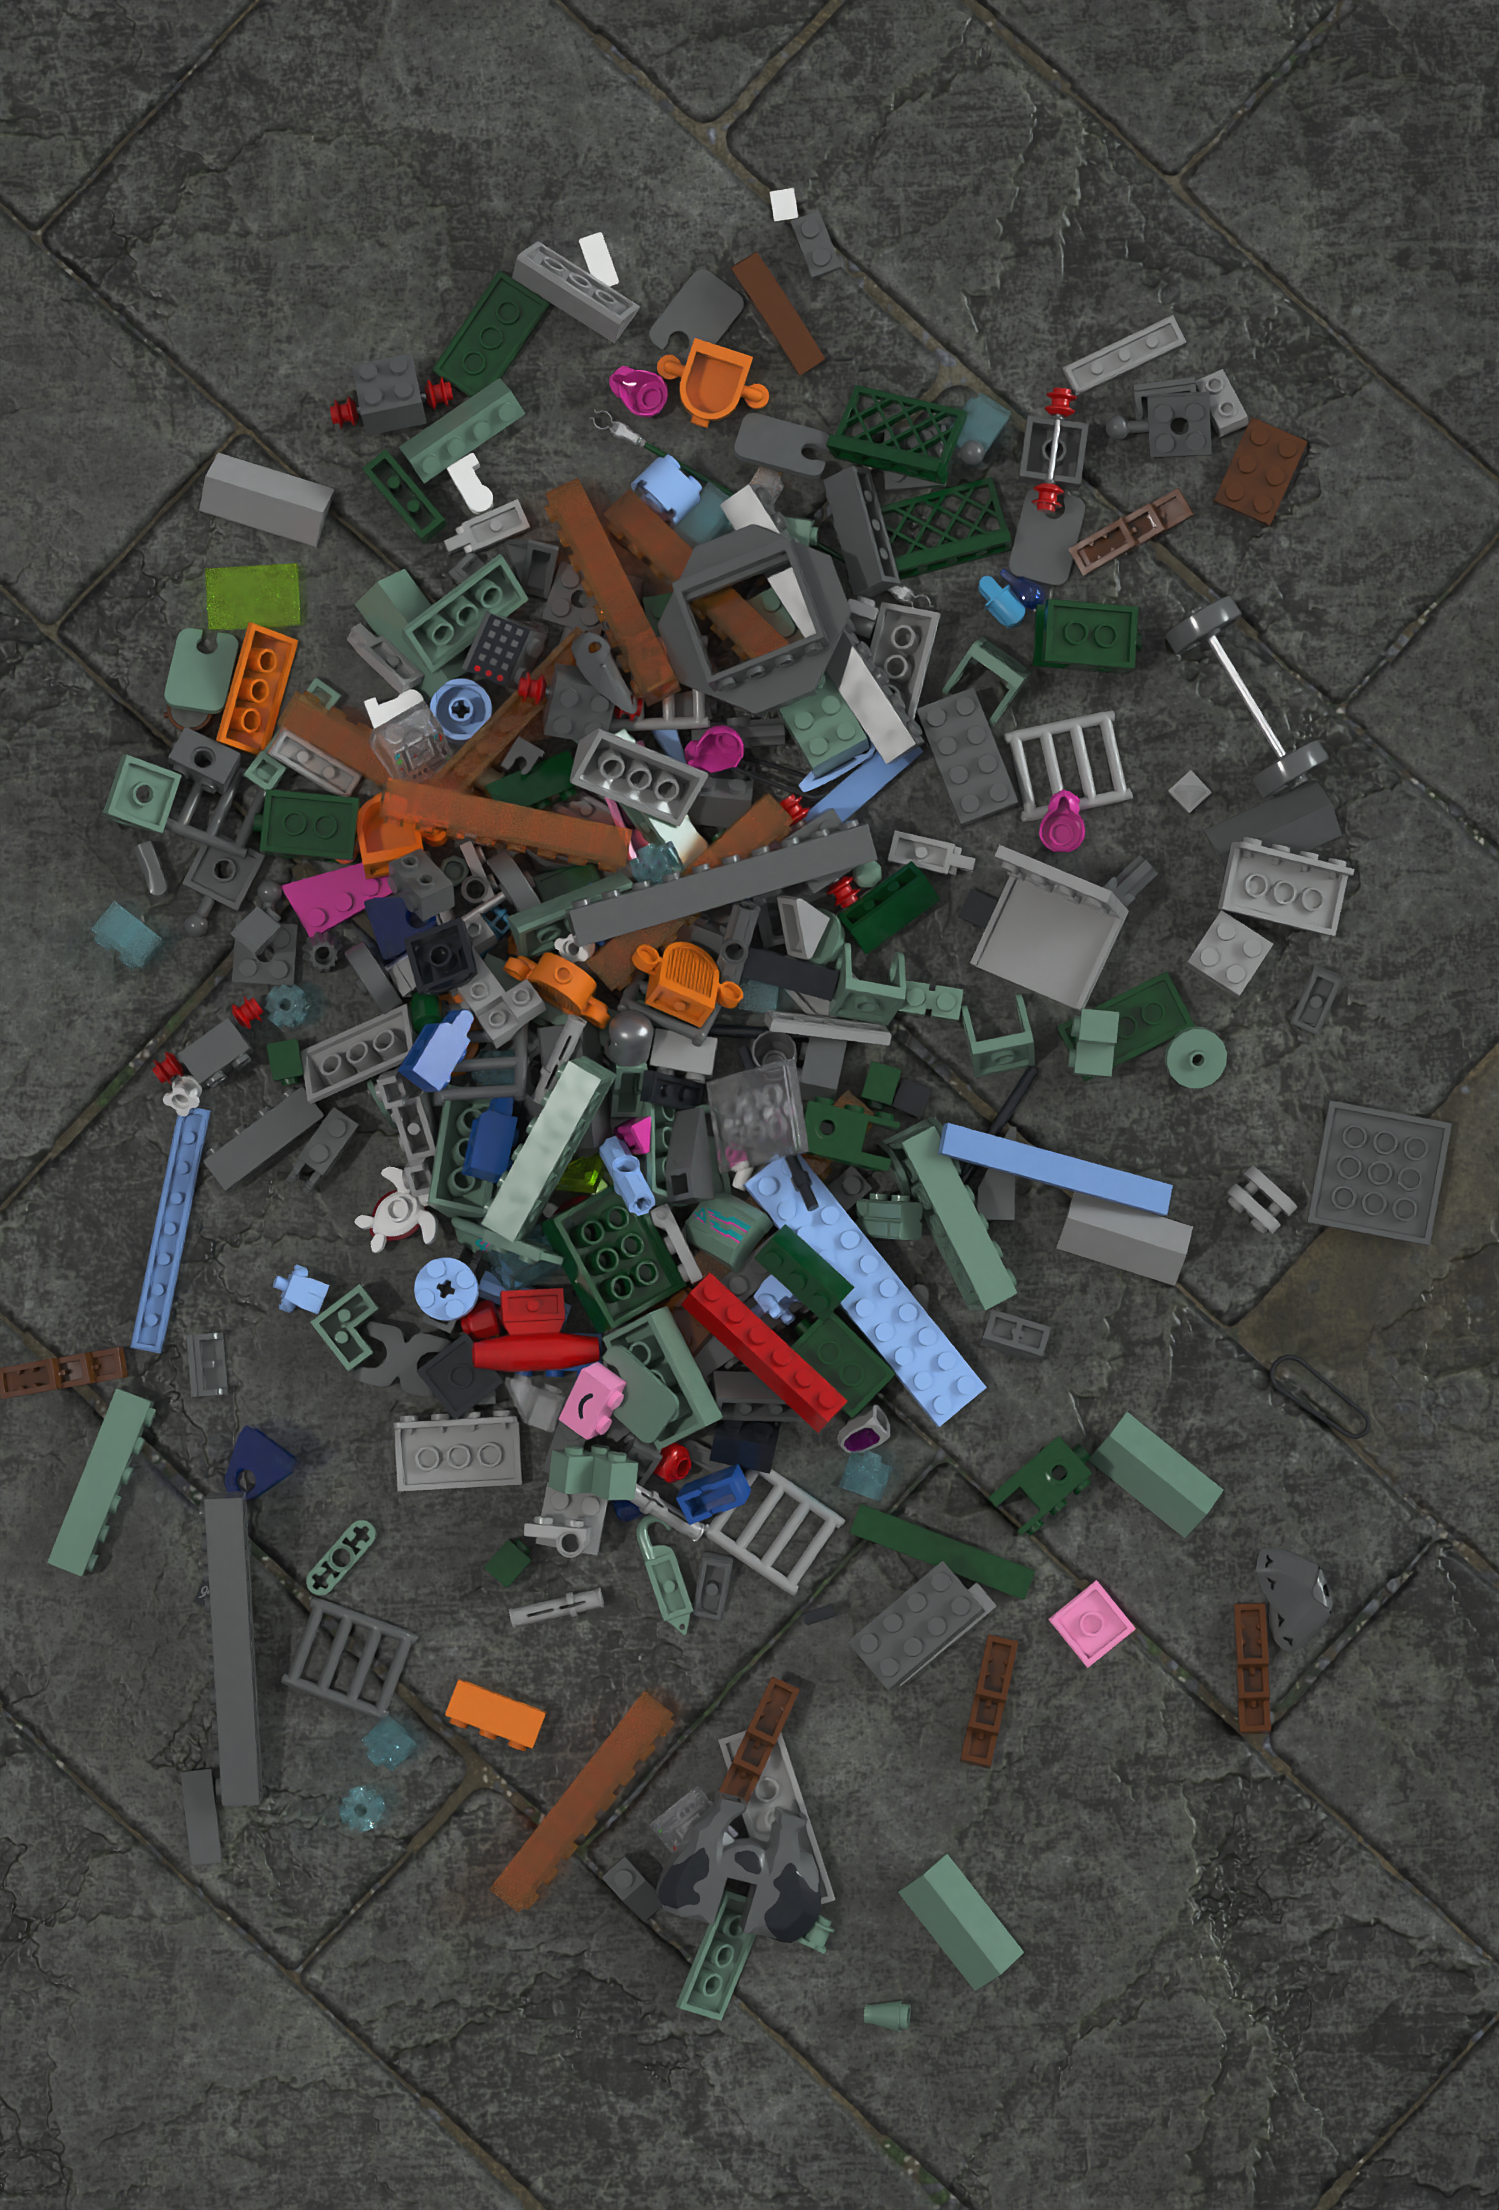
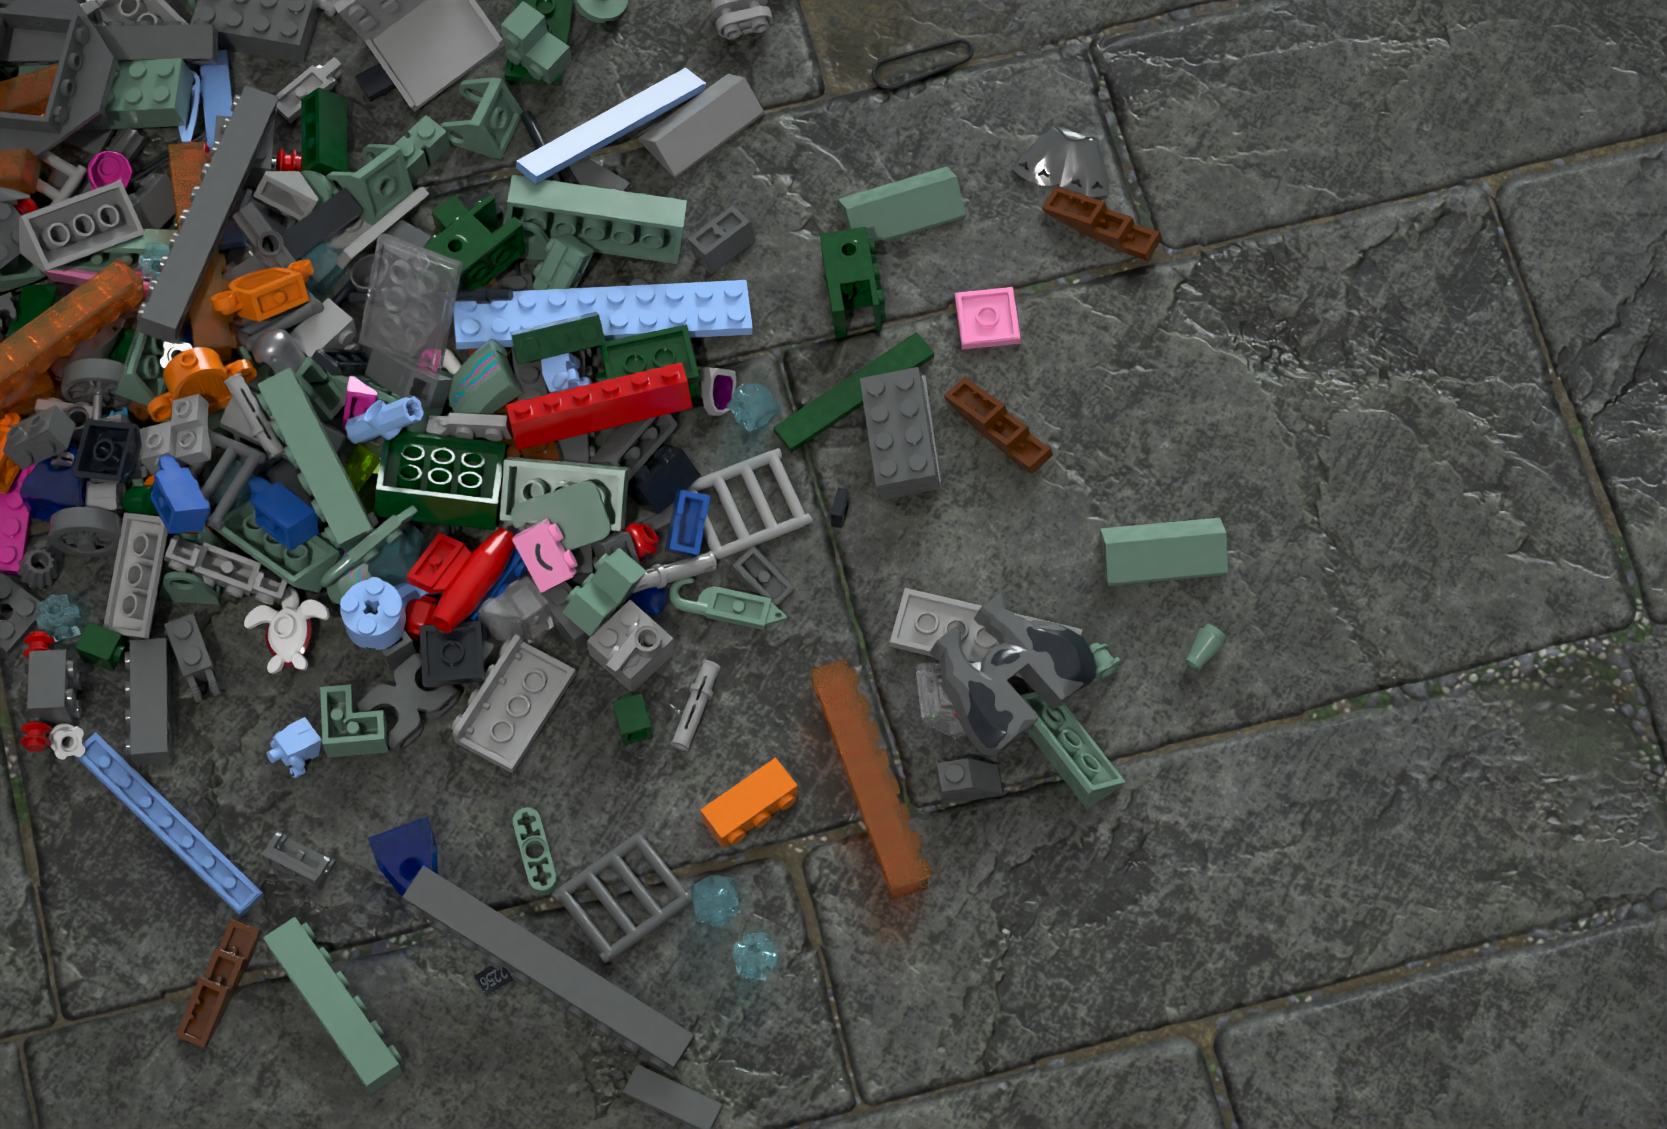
camera: 60 degrees left, 20 degrees down
(759, 1739) = (907, 601): reddish brown slope -> none
(867, 875) = (288, 140): sand green tile -> none

